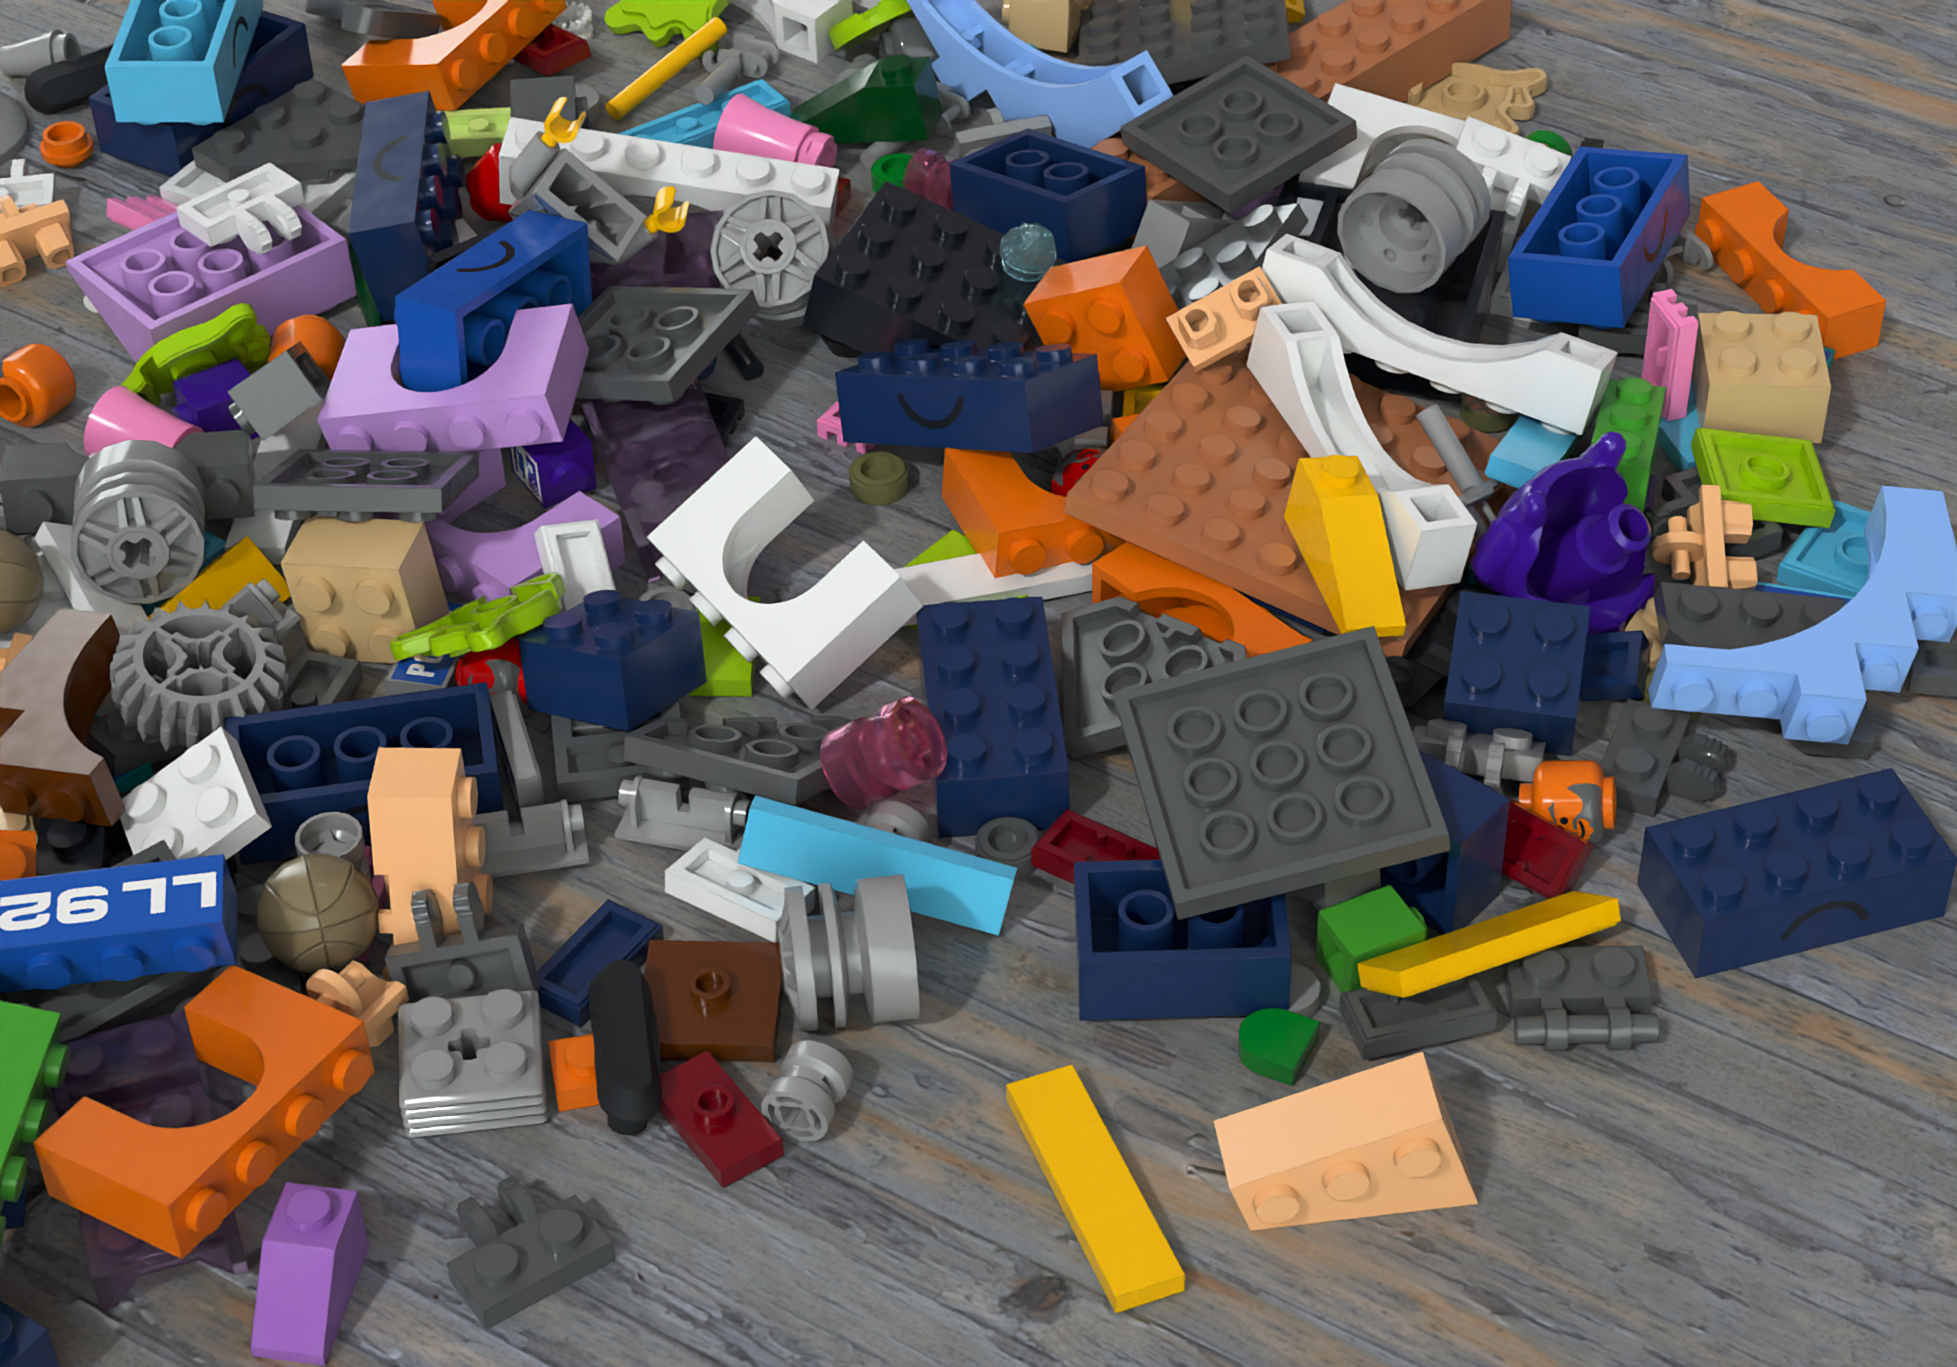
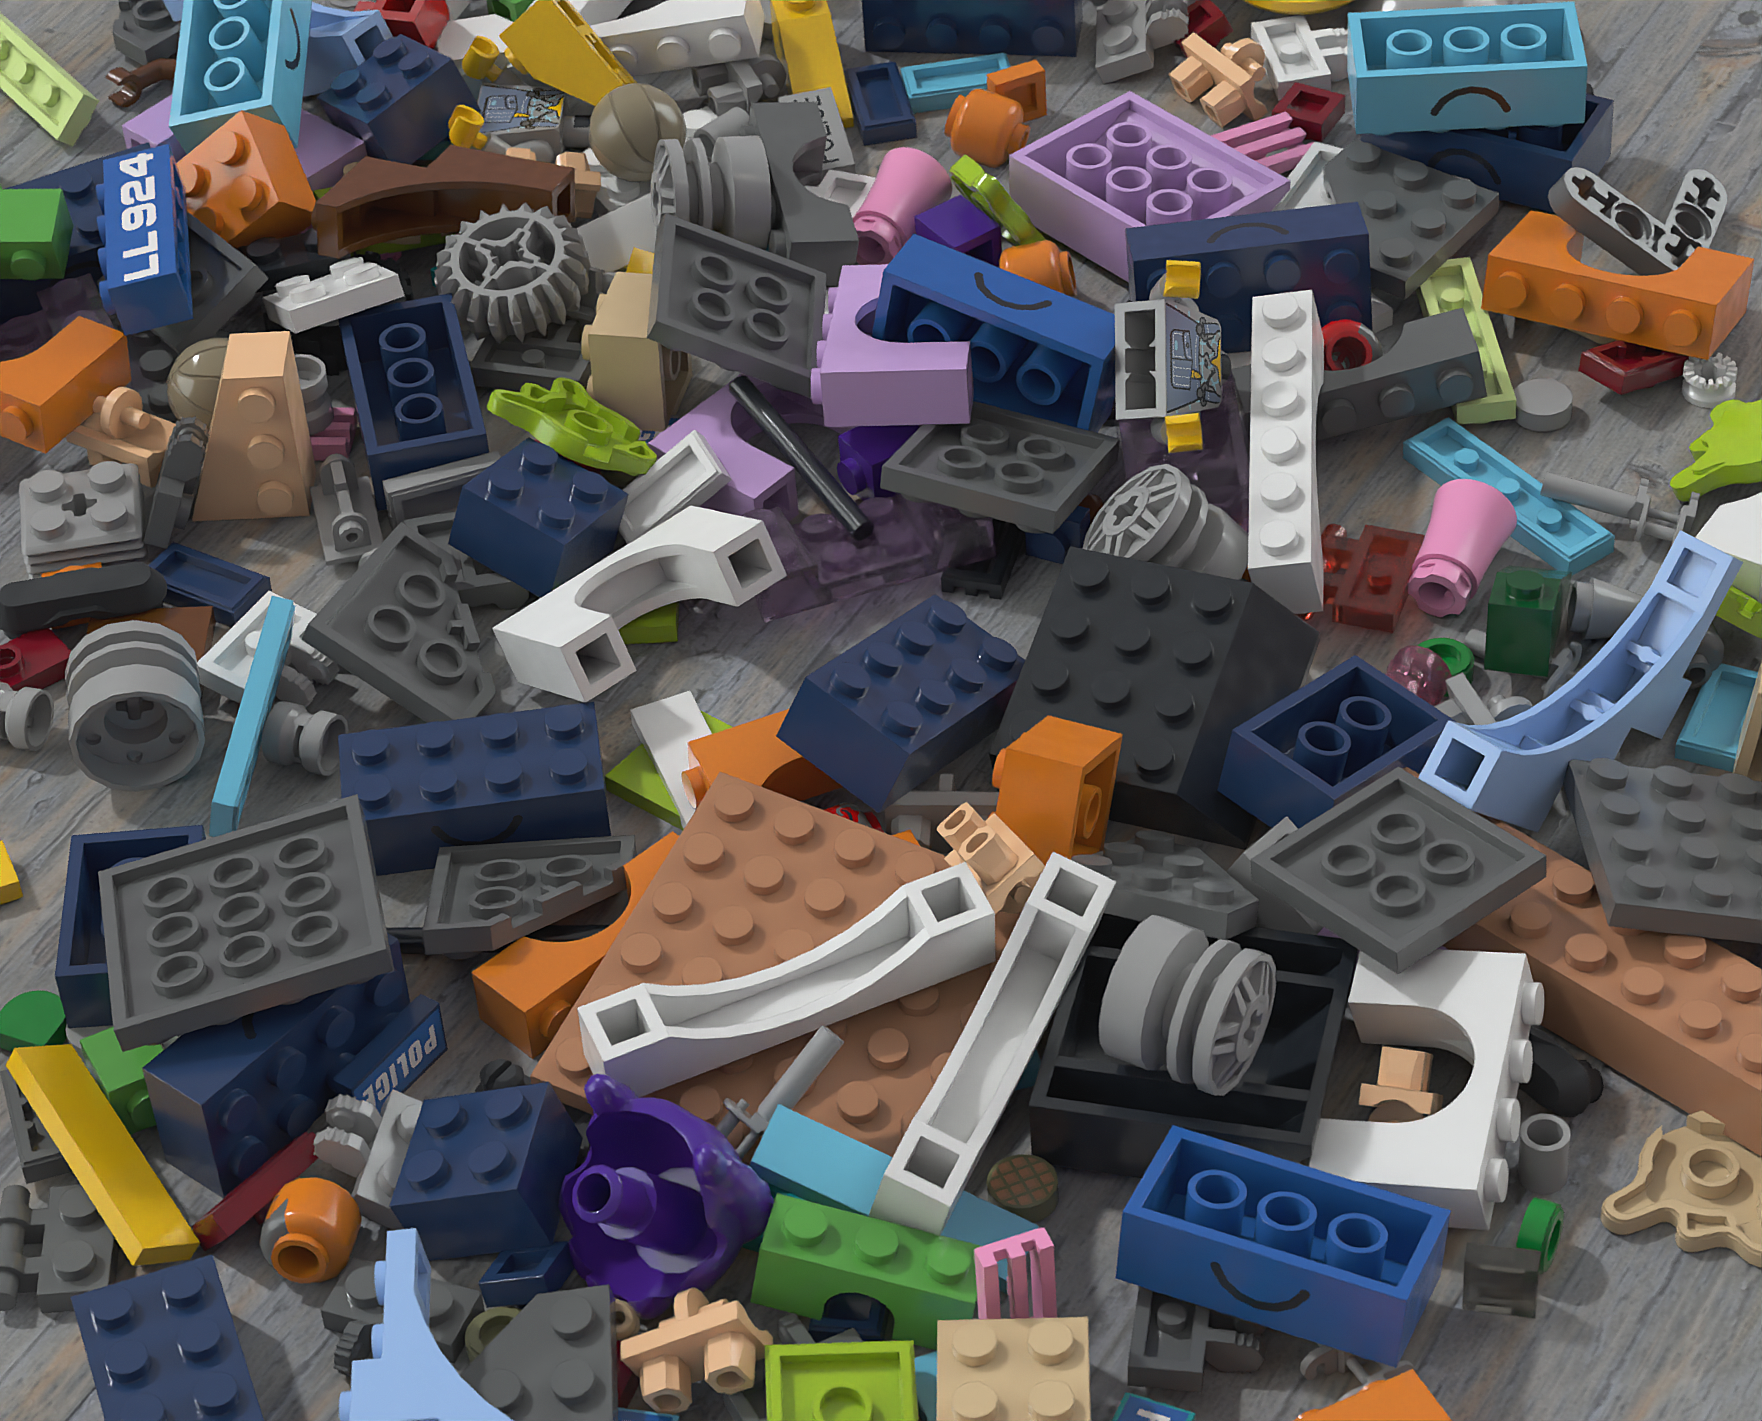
camera: 90 degrees right, 0 degrees up
(89, 193) = (1312, 110): none -> dark red plate
(243, 206) = (1194, 168): white hinge -> none
(278, 392) = (879, 232): brick -> none
(560, 488) = (801, 458): none -> black bar
(666, 68) = (1615, 457): yellow bar -> none
(883, 753) = (360, 687): clear pink wheel -> none
(1028, 252) = (1140, 710): clear light blue plate -> none
(1345, 543) = (656, 951): yellow slope -> none
(1511, 163) = (1408, 1130): white hinge -> none

